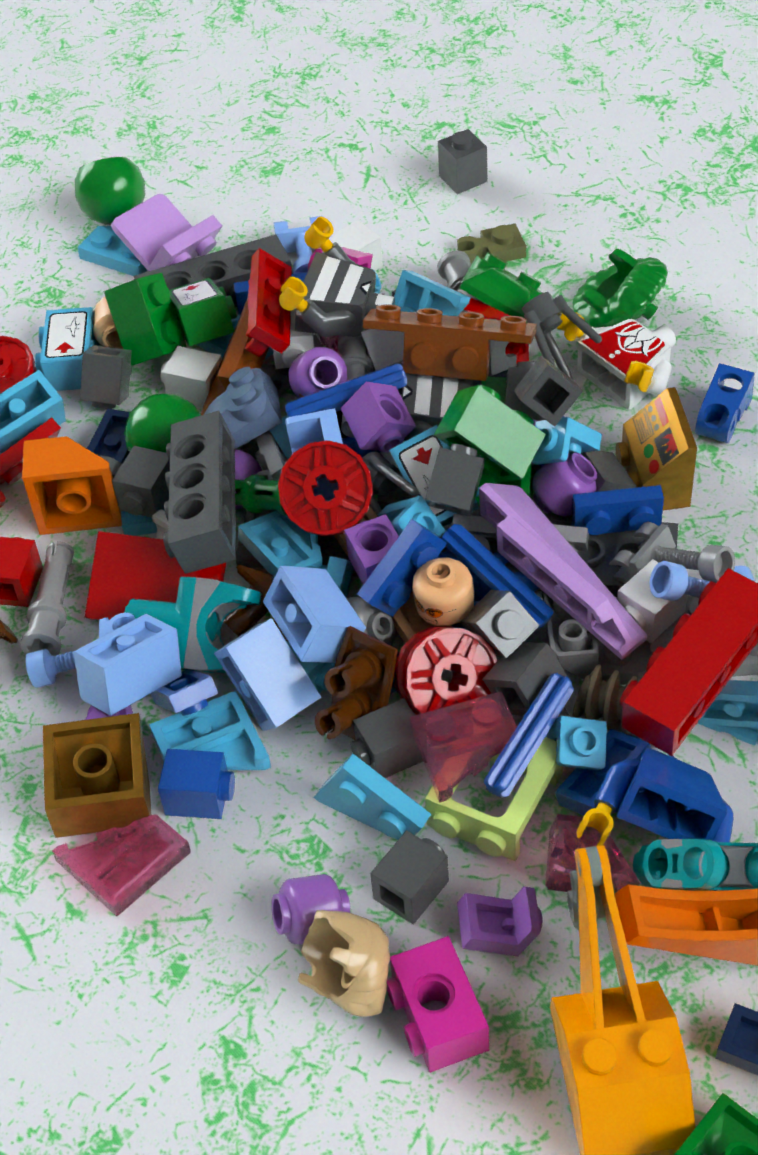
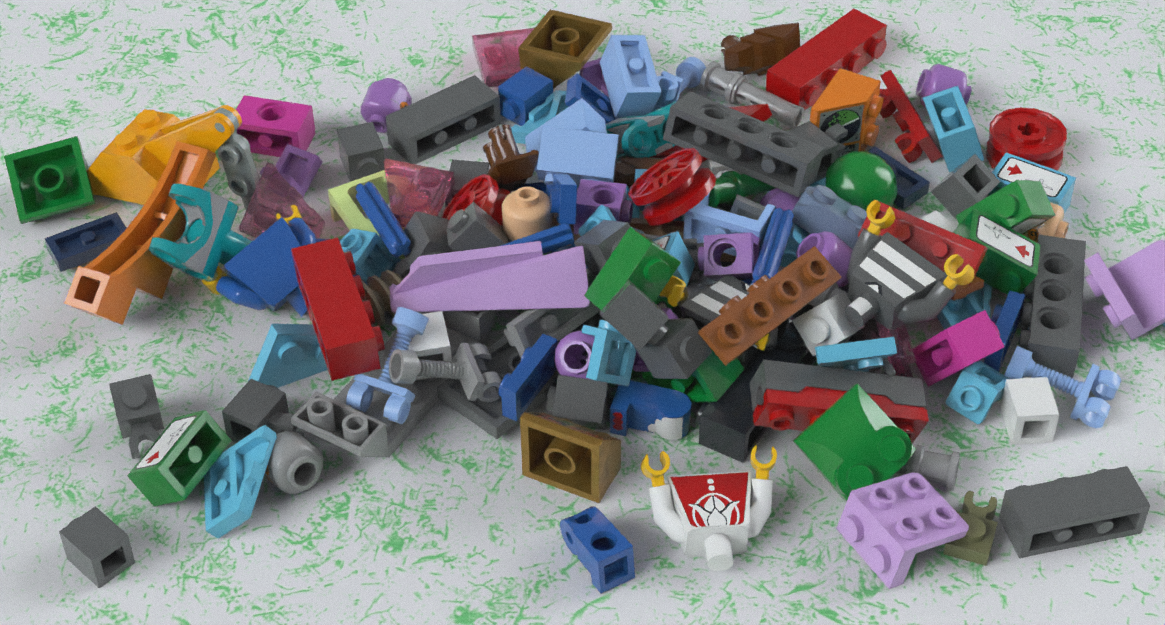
camera: 120 degrees right, 5 degrees down
(291, 835) = (443, 120): none -> dark grey brick
(347, 961) = (332, 94): tan hair -> none
(371, 799) = (430, 147): medium azure wing -> none
(437, 198) = (1073, 511): none -> dark grey brick
(462, 161) = (1122, 559): dark grey brick -> none
(546, 253) = (895, 522): none -> lavender bracket
(546, 314) = (778, 430): dark grey plant -> none
(621, 290) = (803, 555): green piece -> none

